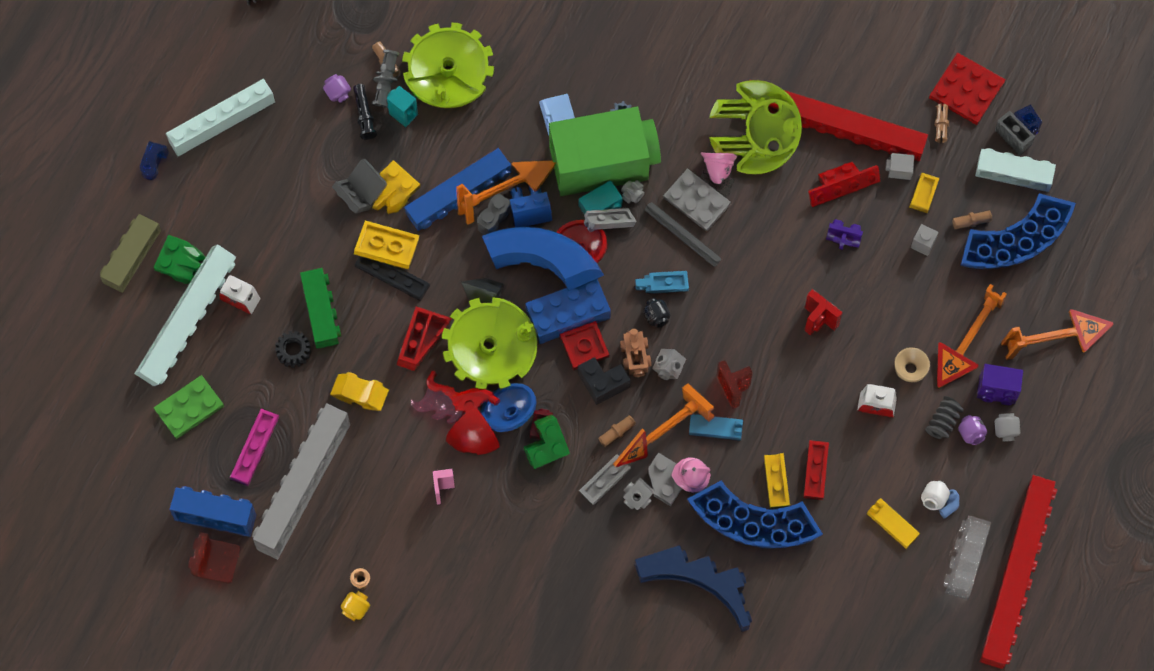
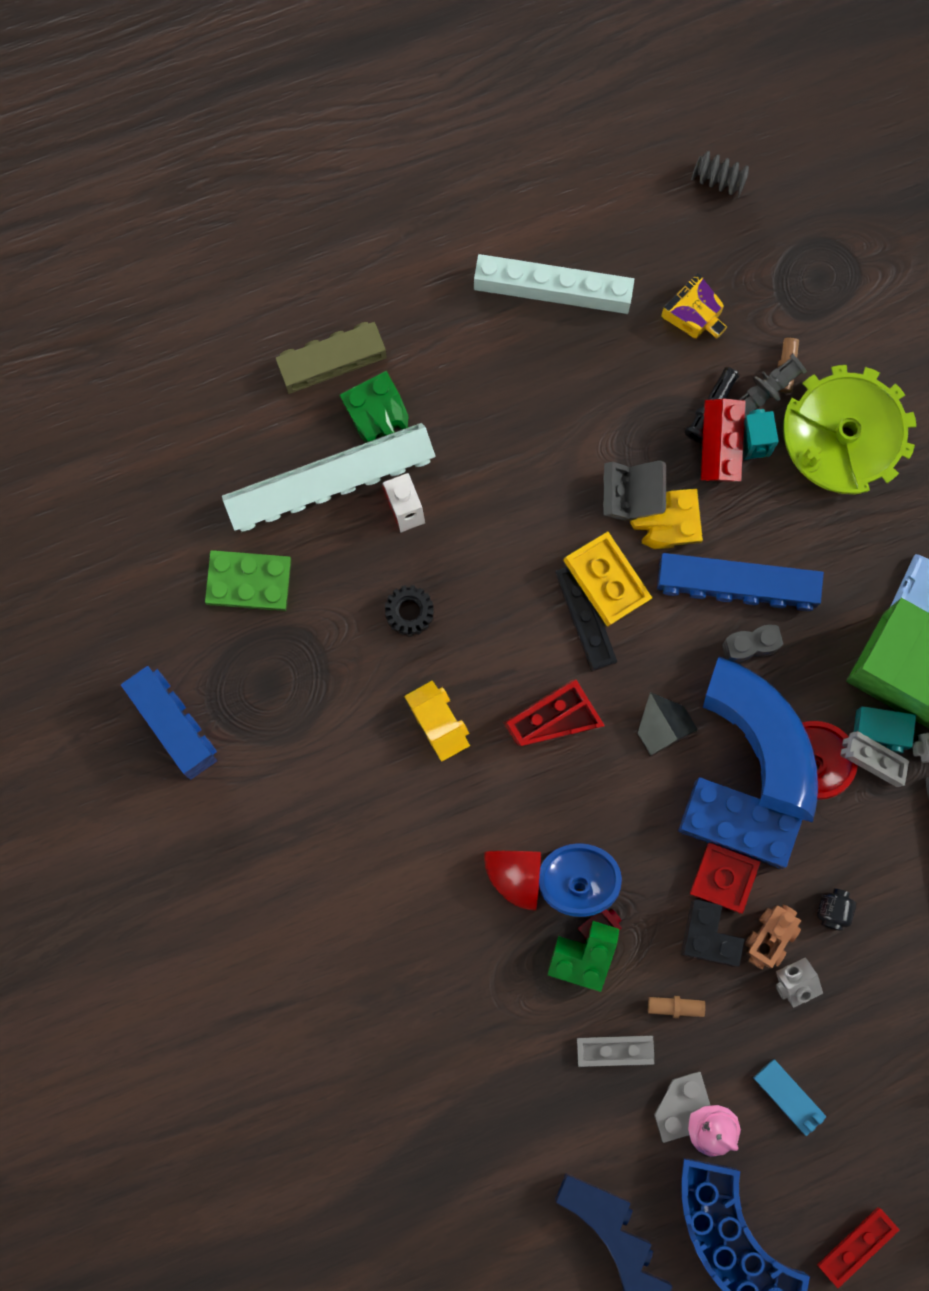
camera: 40 degrees right, 10 degrees up
(151, 159) = (441, 271): clear blue leg -> none
(213, 559) = (129, 774): clear red bracket -> none
(254, 447) = (277, 684): dark pink tile -> none
(301, 481) = (288, 770): light grey brick -> none
(310, 69) = (695, 309): none -> torso
(319, 307) = (476, 589): green brick -> none
(337, 88) = (706, 354): medium lavender head -> none
(355, 605) = (229, 956): yellow head -> none
(360, 574) = (249, 933): light nougat cone -> none
(385, 123) = (723, 440): none -> red brick
(442, 480) = (436, 898): bright pink panel -> none
(450, 403) = (523, 817): piece -> none
(502, 326) = (653, 797): lime piece -> none
(531, 208) = (798, 671): blue brick -> none
(532, 173) = (836, 628): orange piece -> none
(638, 447) = (789, 1055): orange piece -> none
(641, 488) = (635, 1102): light grey brick -> none
(663, 282) = (875, 881): dark azure hinge -> none
(734, 382) = (847, 1070): clear red bracket -> none
(776, 480) = (803, 1220): yellow hinge -> none

